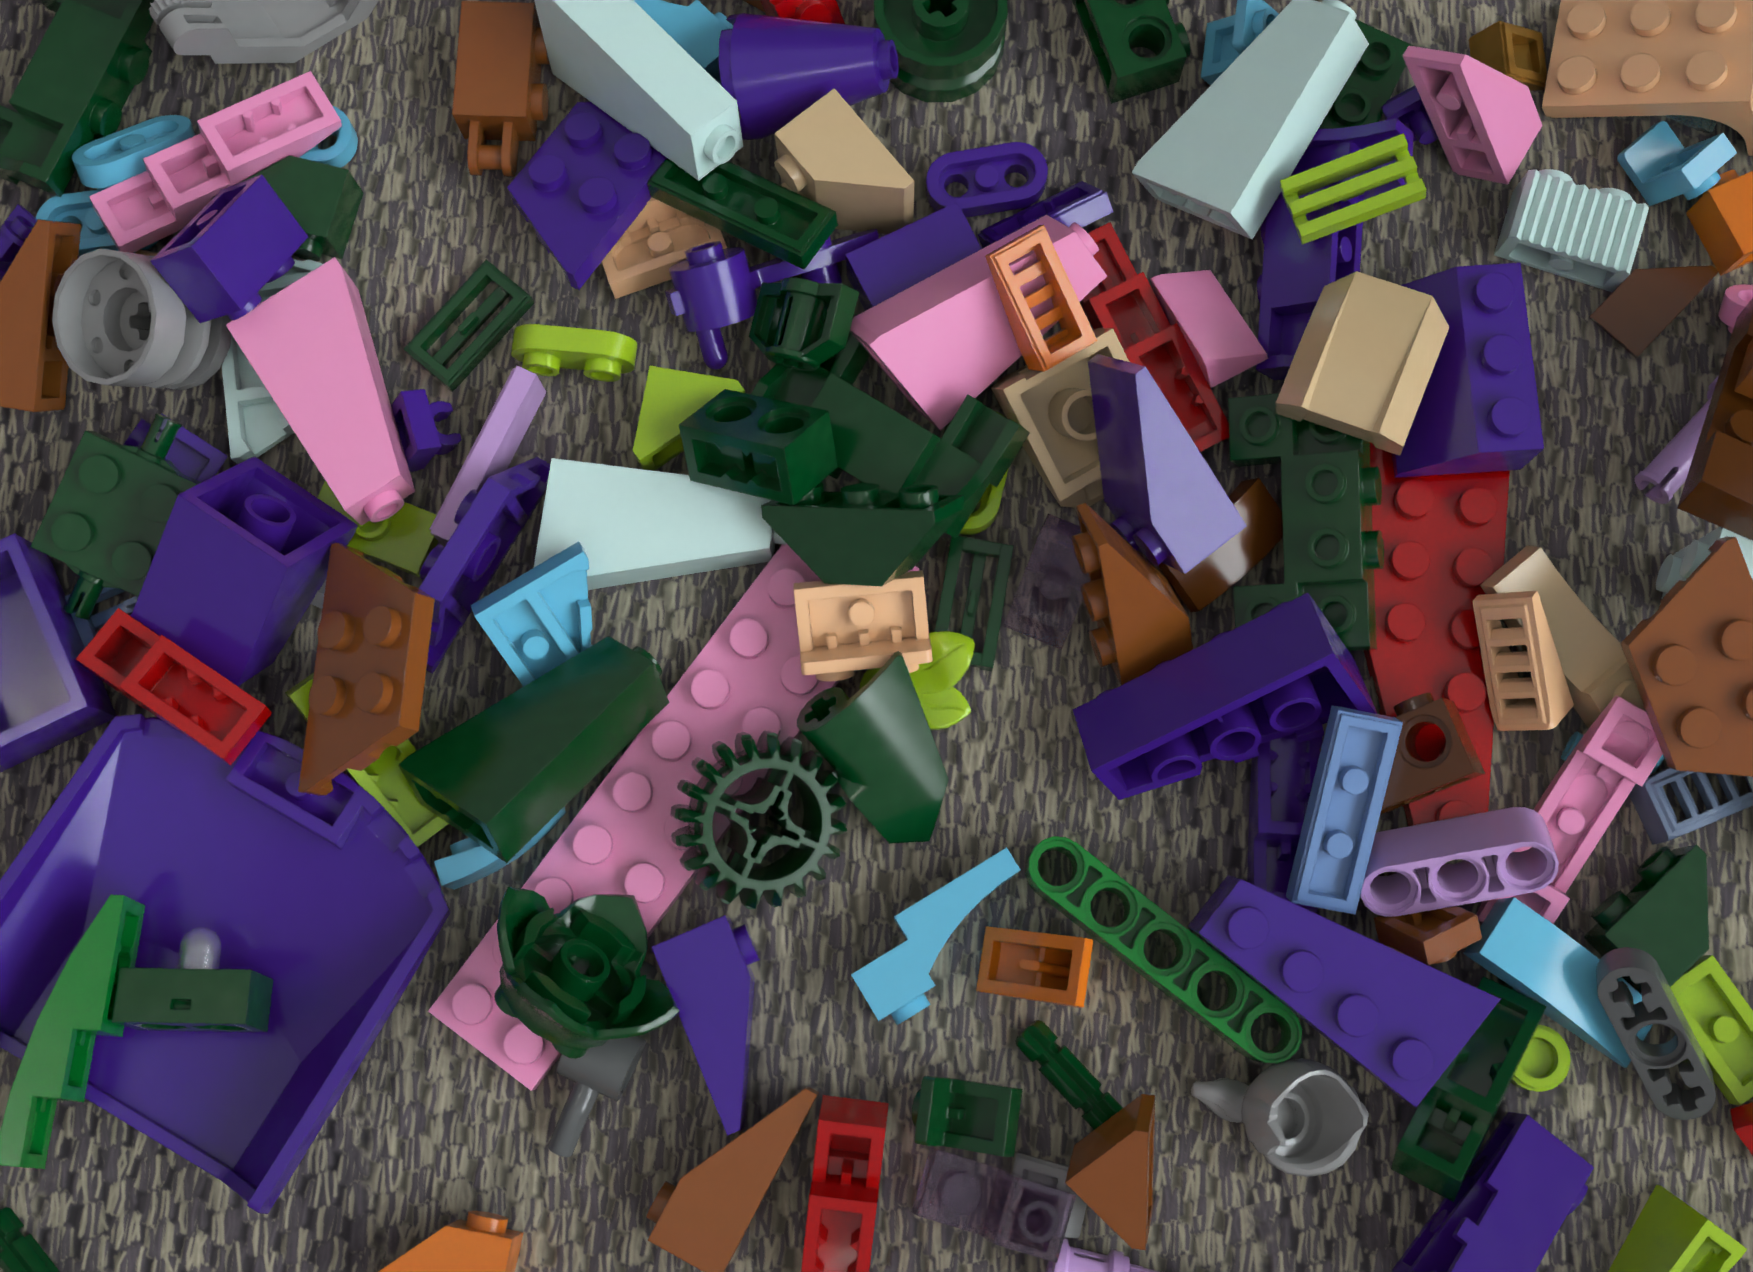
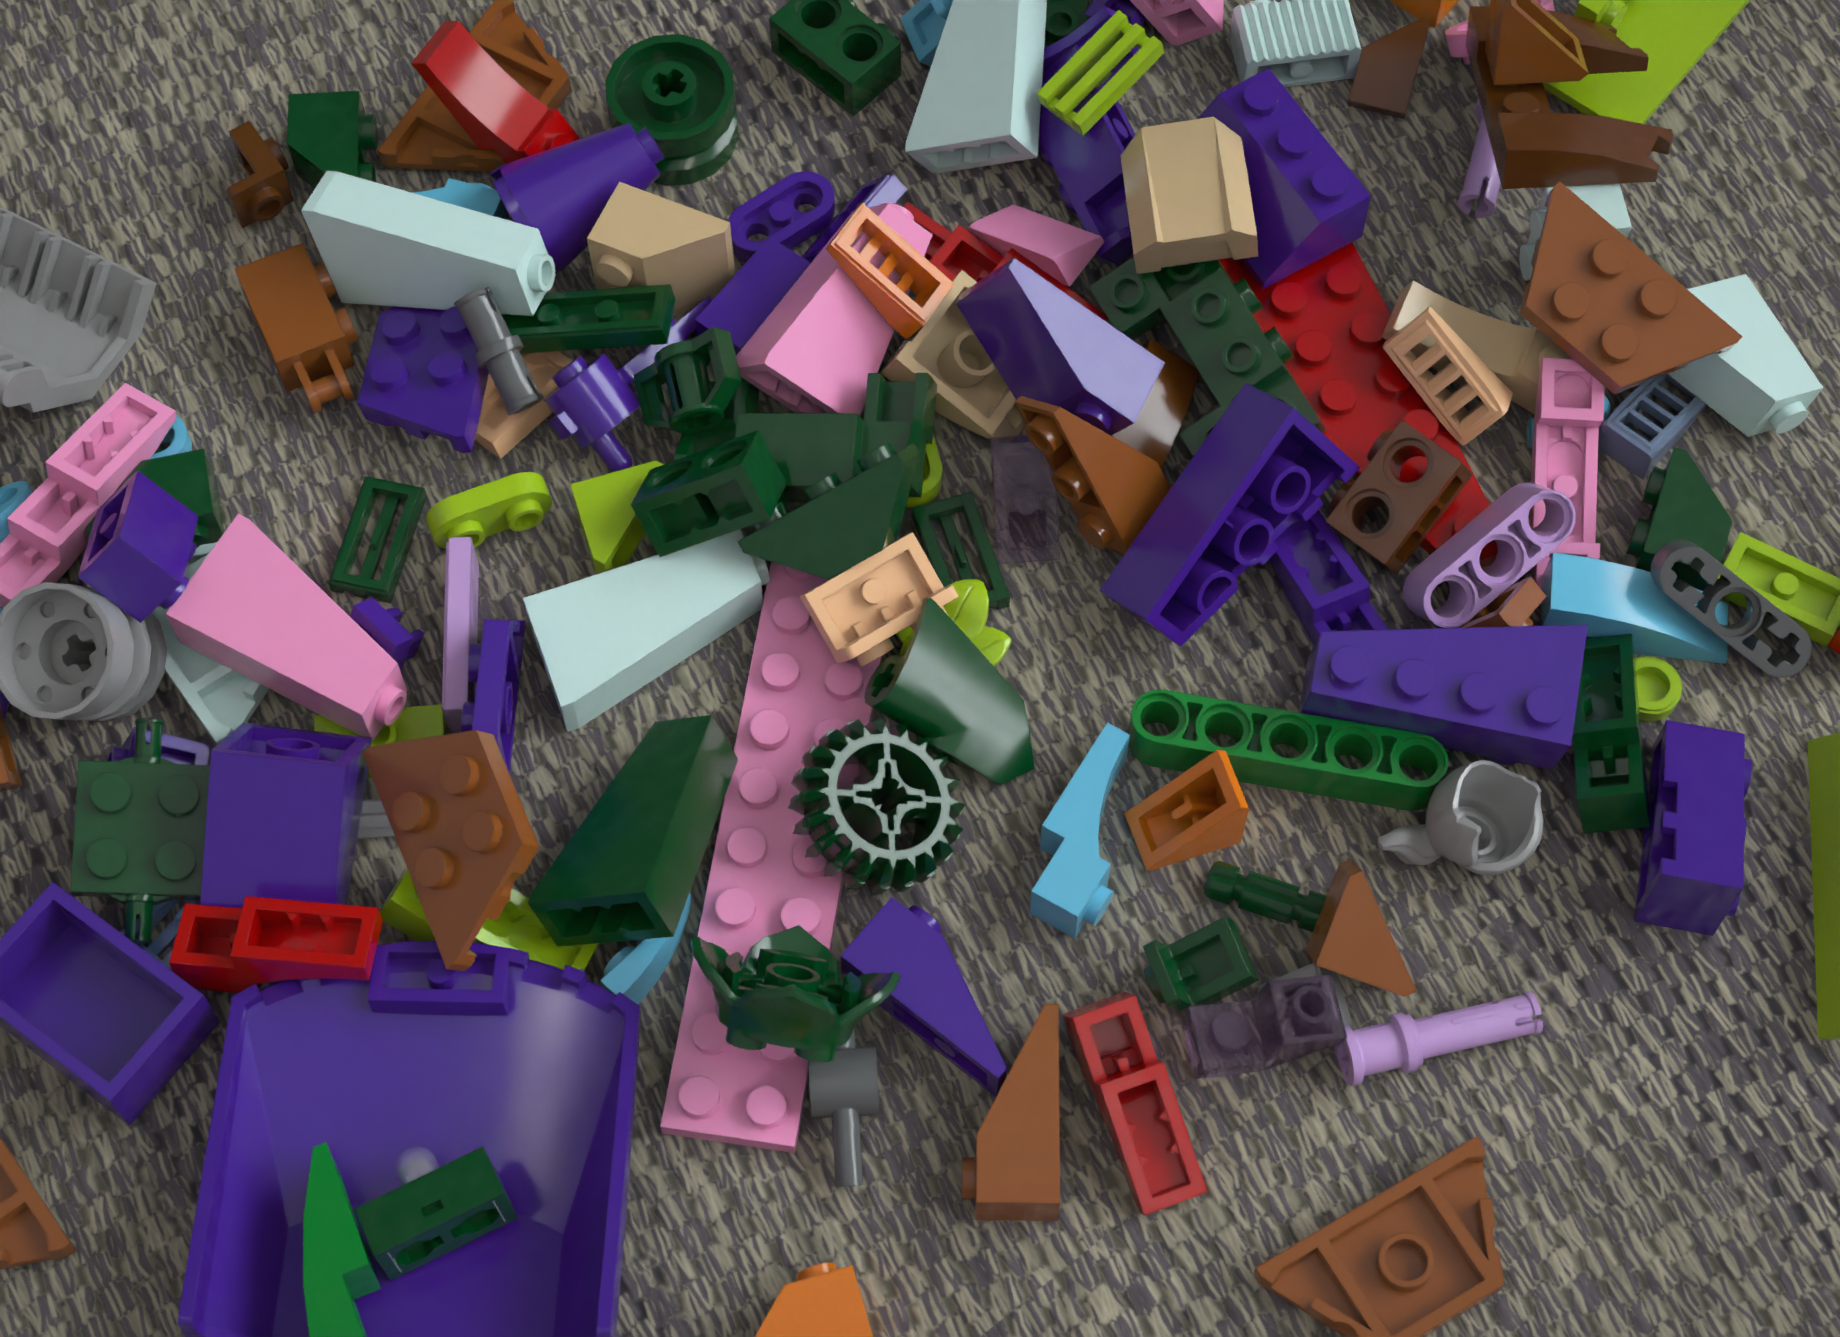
camera: 30 degrees left, 15 degrees down
(540, 615) = (585, 729): medium azure wing -> none
(649, 202) = (498, 350): none -> dark grey pin
(1343, 809) = (1372, 543): medium blue tile -> none

